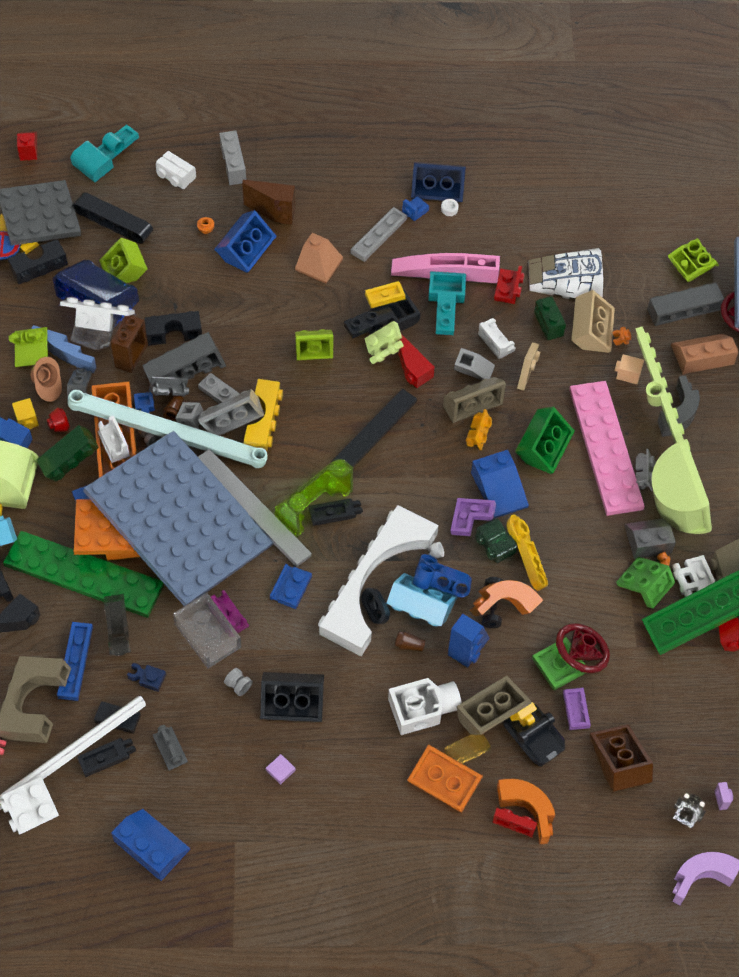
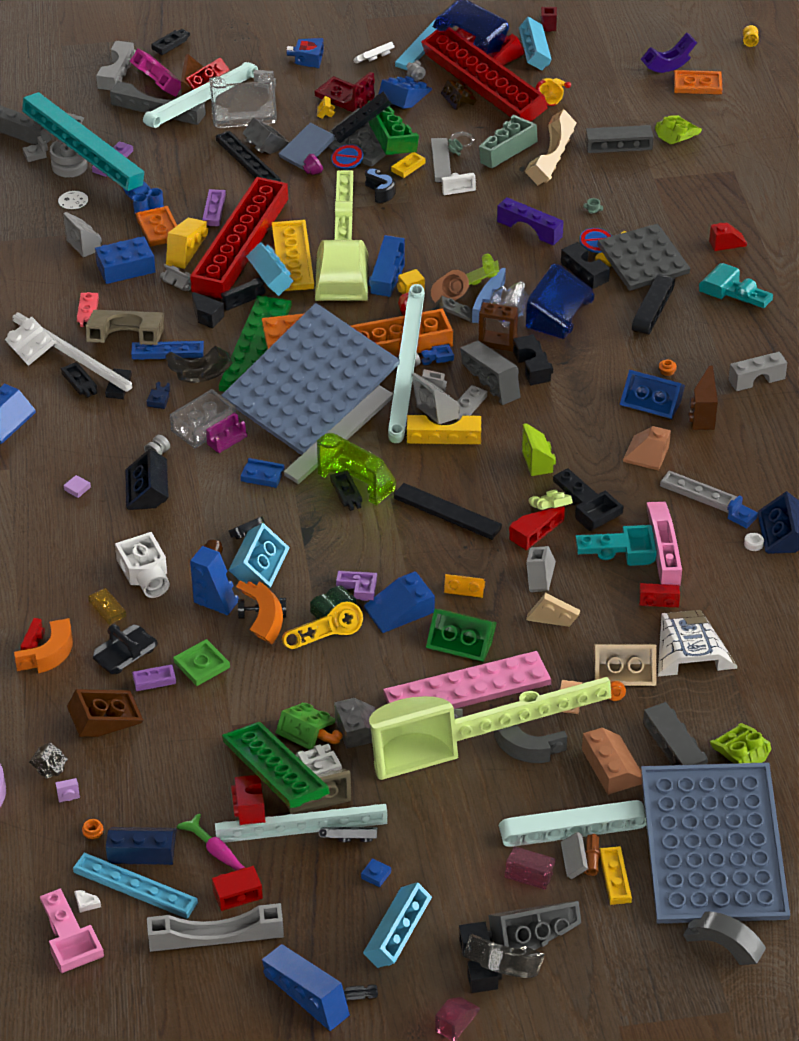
camera: 85 degrees right, 15 degrees down
(67, 453) = (368, 307): dark green brick -> none
(95, 315) = (517, 290): white bracket -> none
(113, 440) = (383, 326): white hinge -> none
(124, 261) = (600, 318): lime slope -> none
(165, 385) = (461, 368): dark grey hinge -> none
(169, 747) = (88, 417): dark grey hinge -> none
(172, 408) = (449, 373): reddish brown cone -> none
(175, 170) = (727, 335): white brick -> none
(385, 294) = (605, 488): yellow plate -> none
(401, 533) = (227, 508): white arch -> none
(429, 573) = (281, 563): blue piece -> none
(436, 550) = (320, 564): white hinge -> none
(445, 778) = (73, 590): orange tile -> none
(474, 399) = (497, 573): dark tan slope -> none
(491, 706) = (144, 607): dark tan slope -> none
(495, 339) = (583, 588): white hinge -> none
(524, 715) = (137, 630): yellow tile -> none
(549, 318) = (620, 625): dark green brick -> none
(583, 648) = (217, 674): dark red piece -> none

